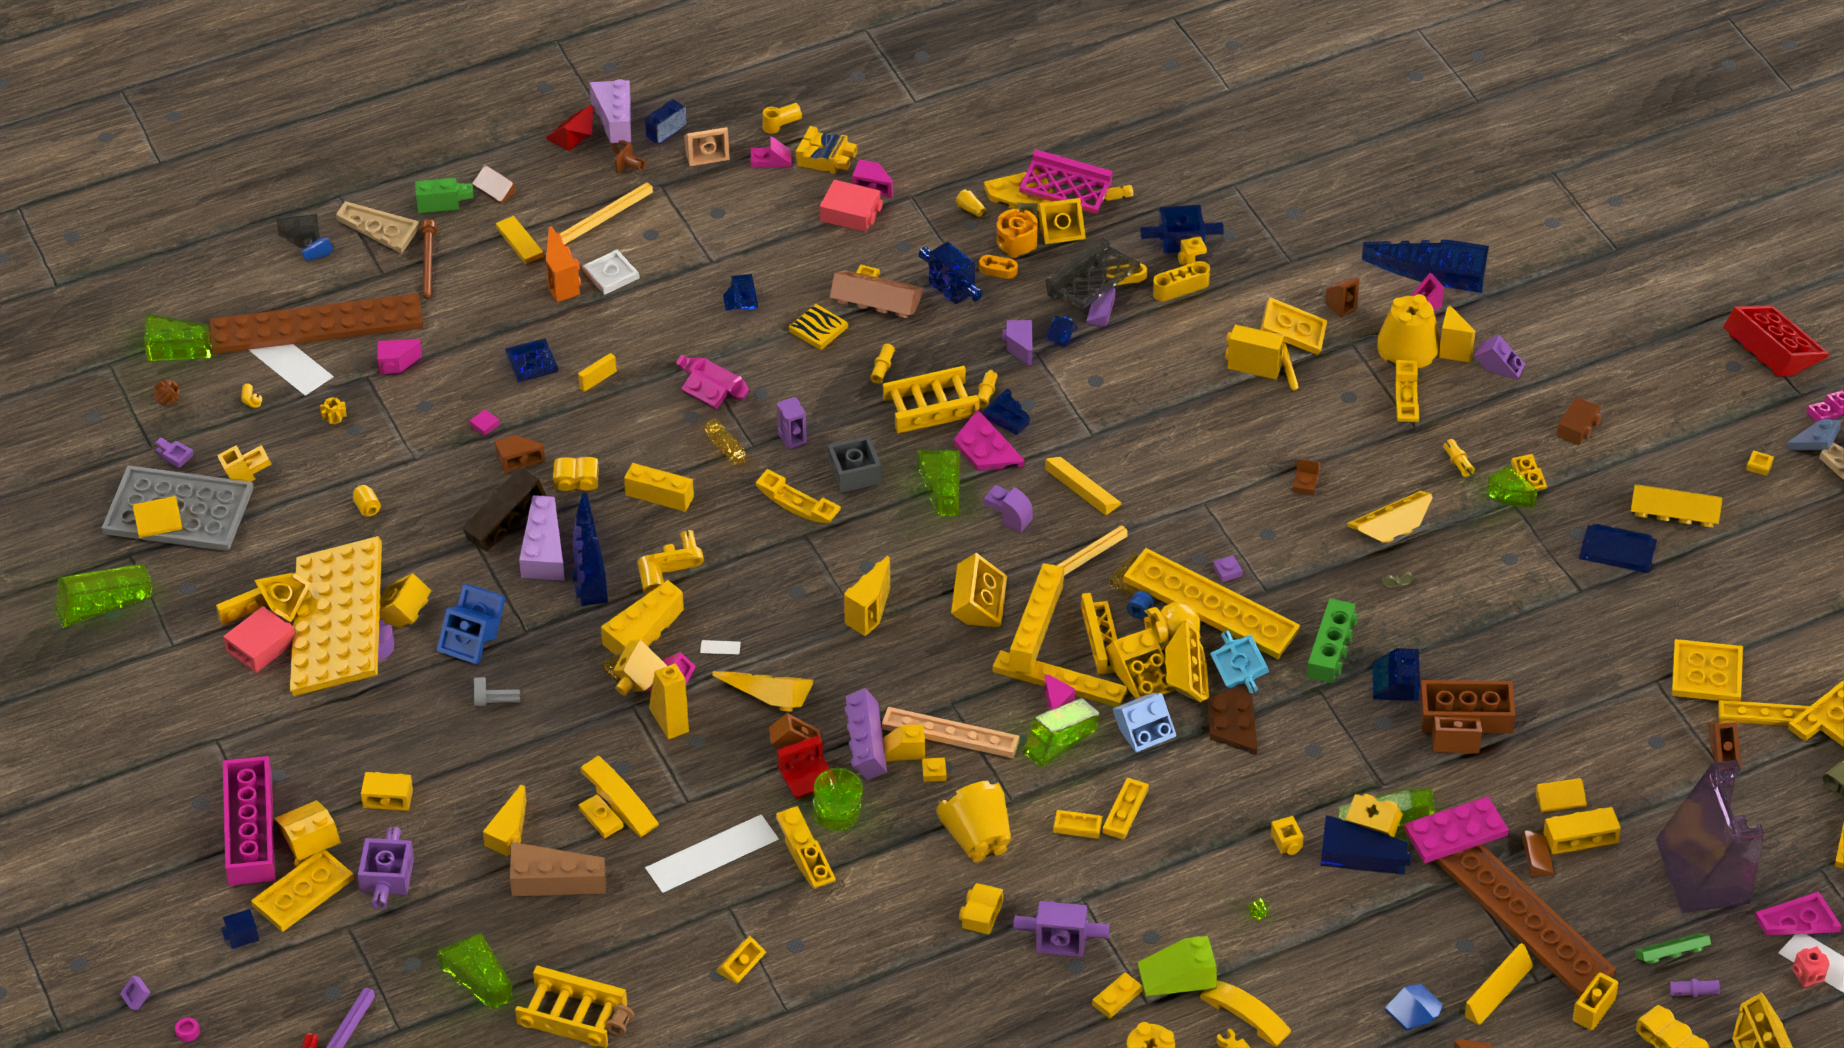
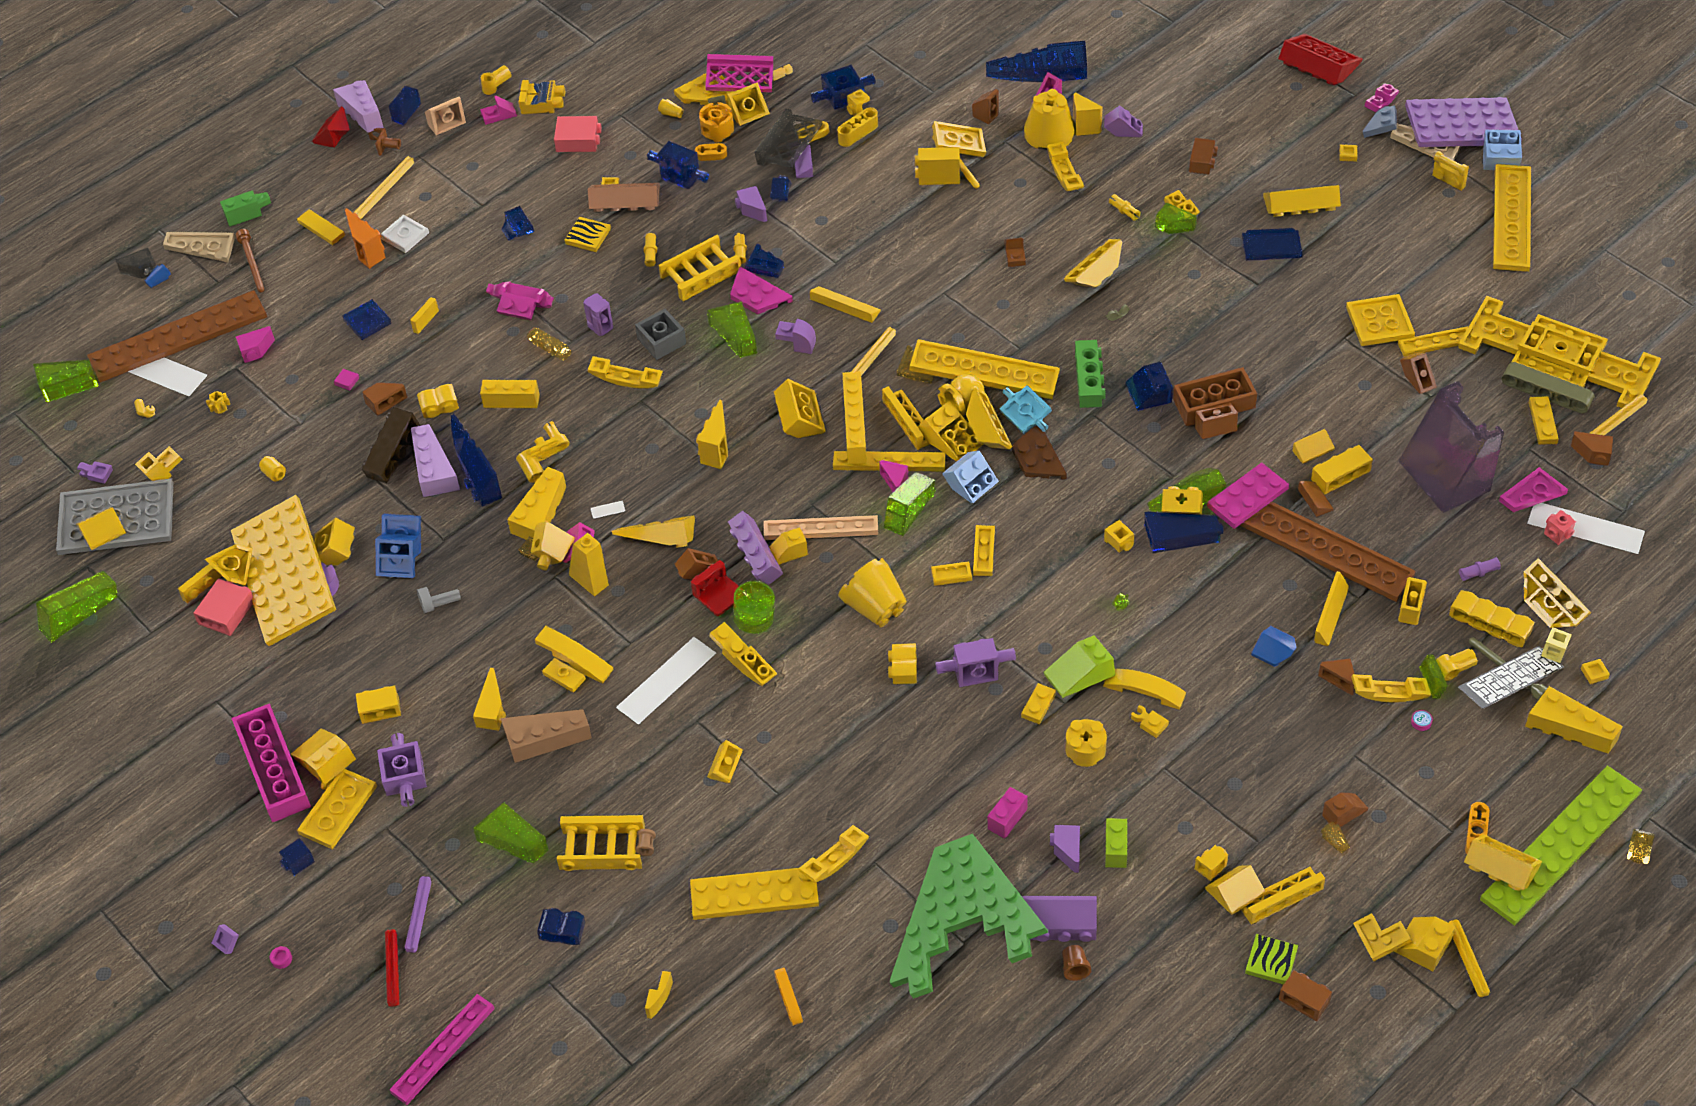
camera: 15 degrees left, 5 degrees up
(166, 392) = (72, 424): dark orange gear -> none
(494, 184) = (284, 188): slope -> none
(873, 176) = (587, 106): dark pink slope -> none
(934, 769) = (819, 561): yellow plate -> none
(1139, 603) = (929, 385): blue wheel -> none
(1227, 569) = (984, 339): medium lavender plate -> none
(1673, 948) = (1450, 541): bright green plate -> none

